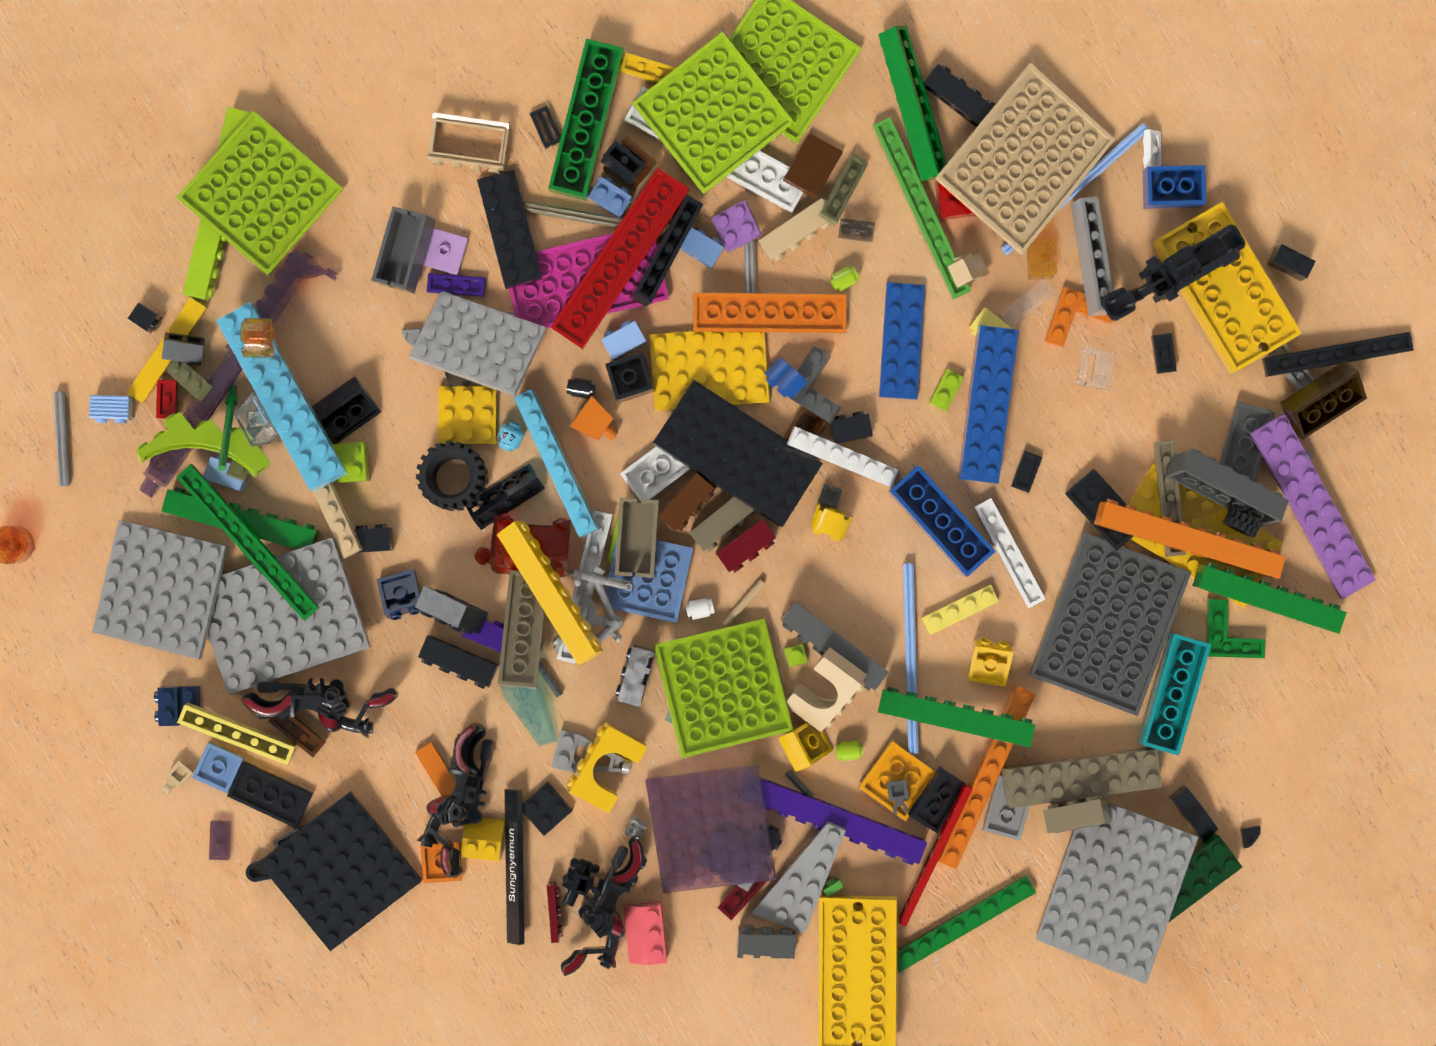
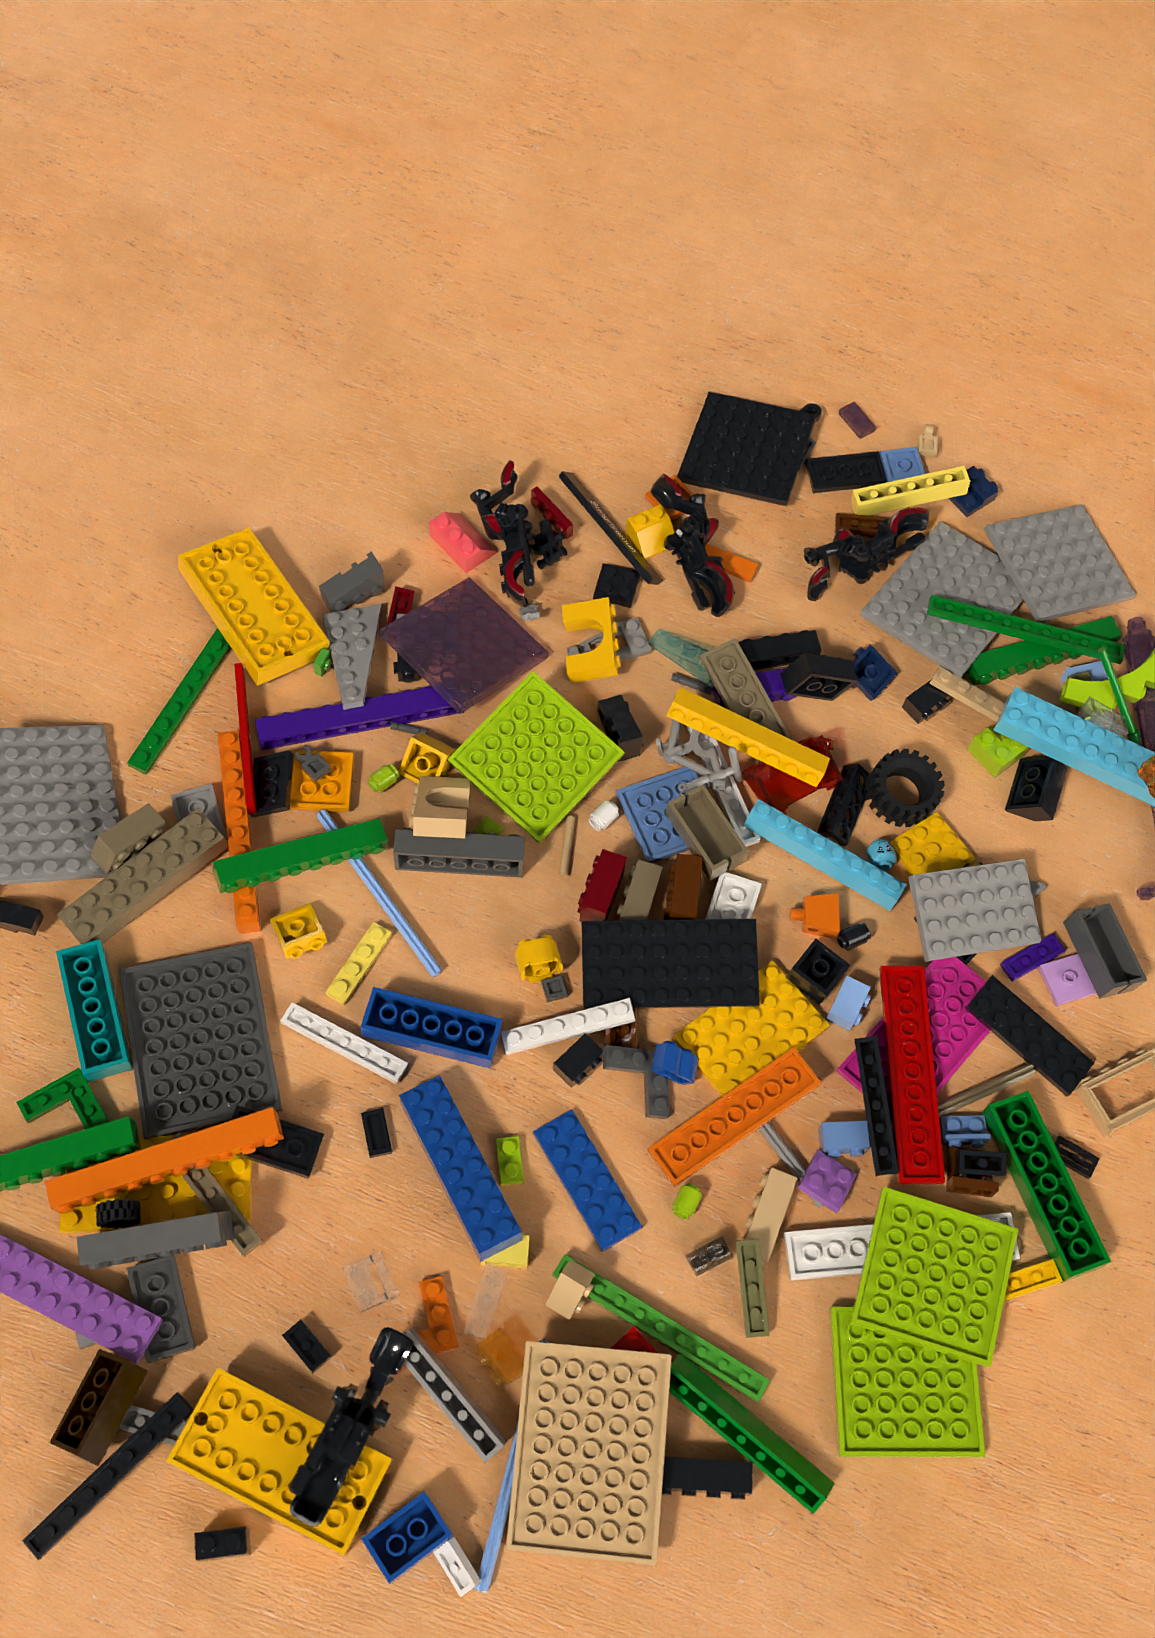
camera: 140 degrees right, 25 degrees down
(812, 166) = (798, 1293): reddish brown tile -> none

